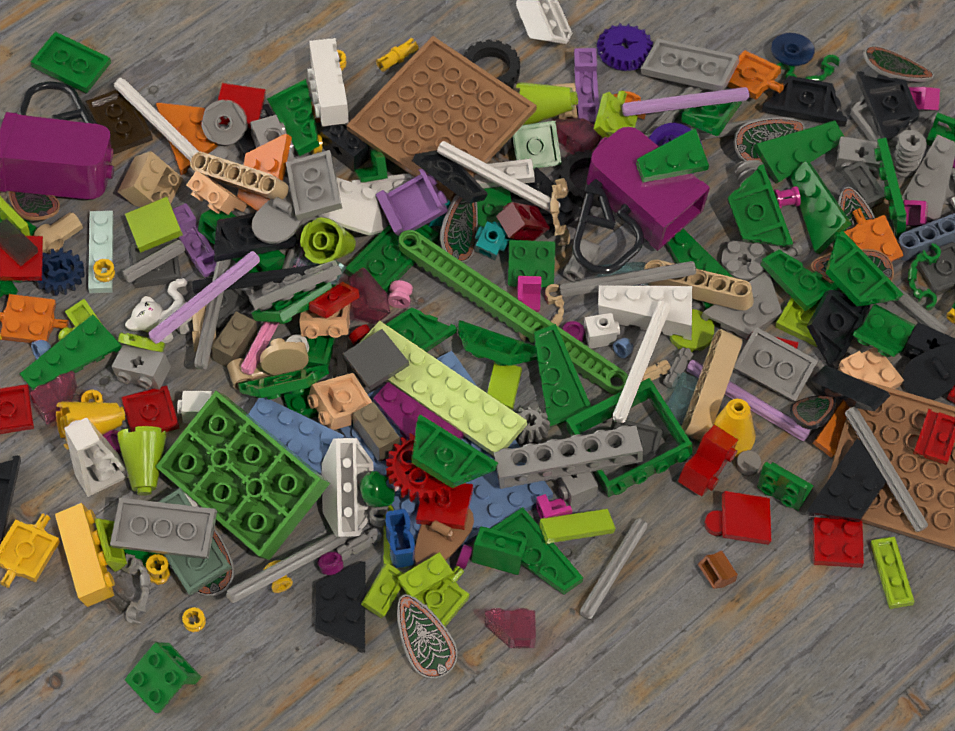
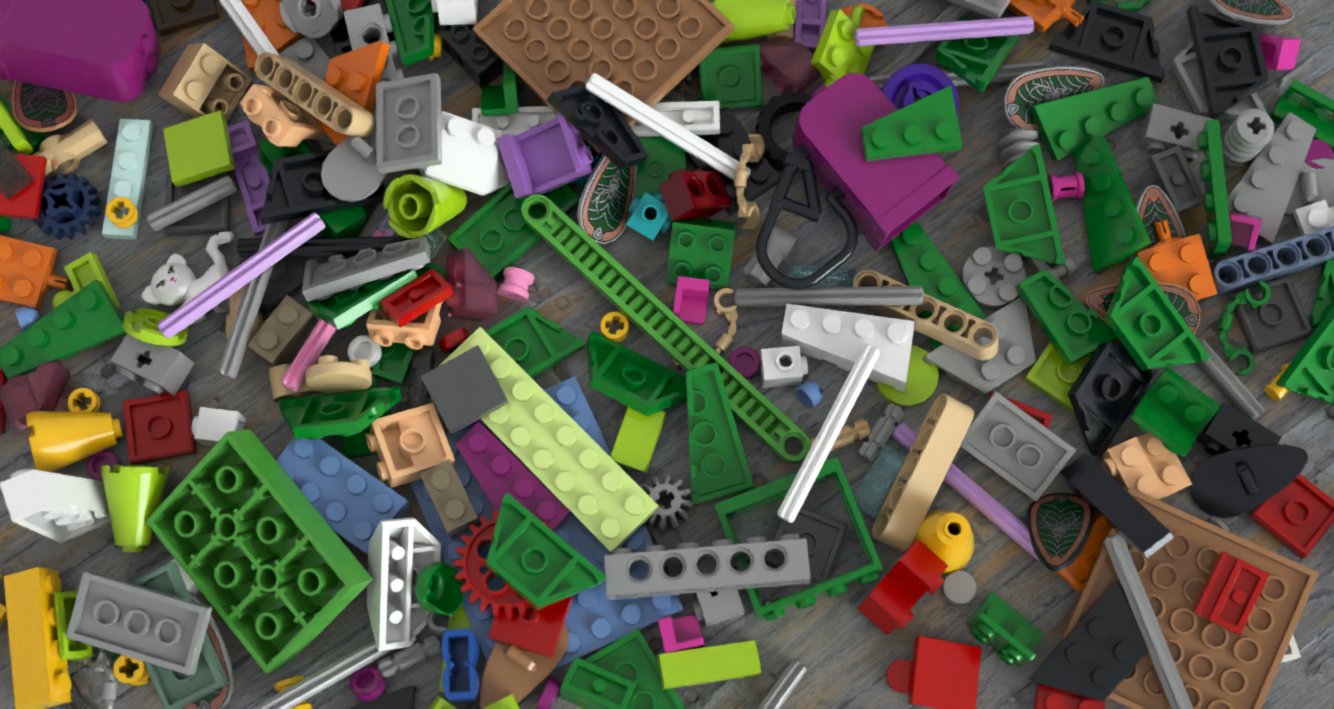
camera: 10 degrees right, 15 degrees up
(476, 310) = (620, 334): none -> yellow bush

